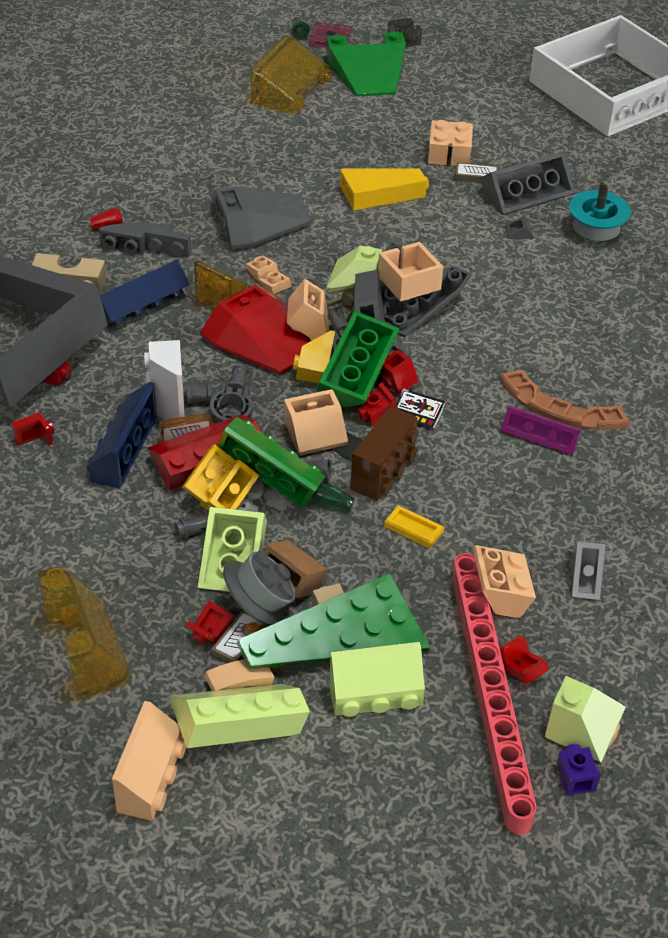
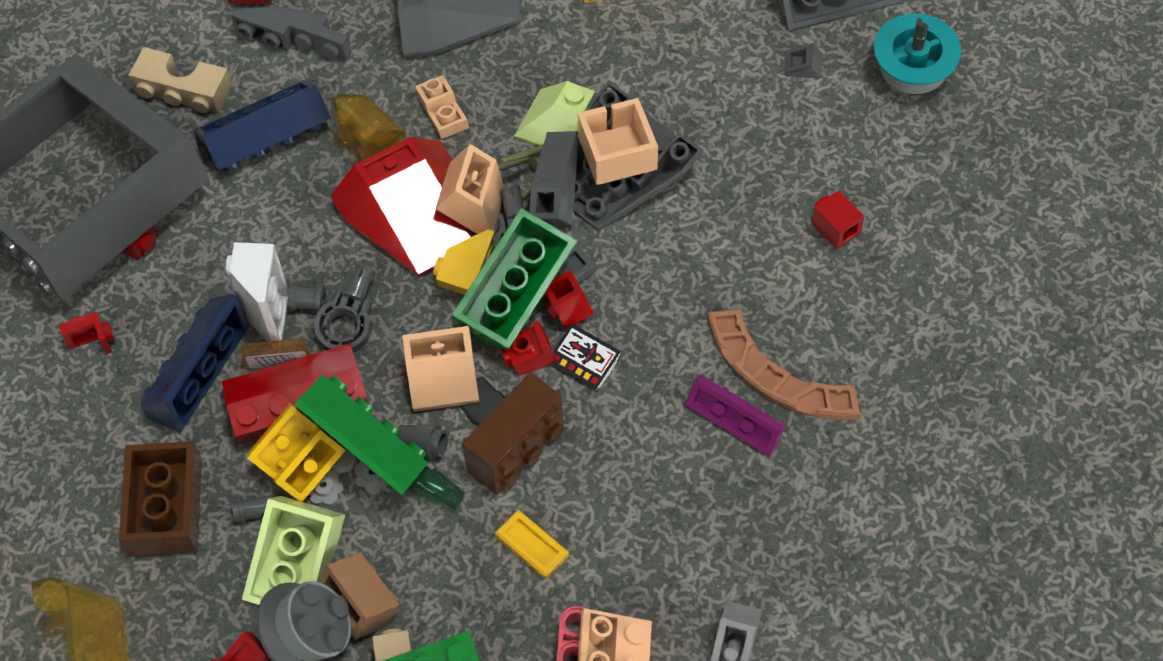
camera: 15 degrees right, 15 degrees up
(120, 524) = (160, 499): none -> reddish brown brick
(575, 309) = (837, 219): none -> red brick

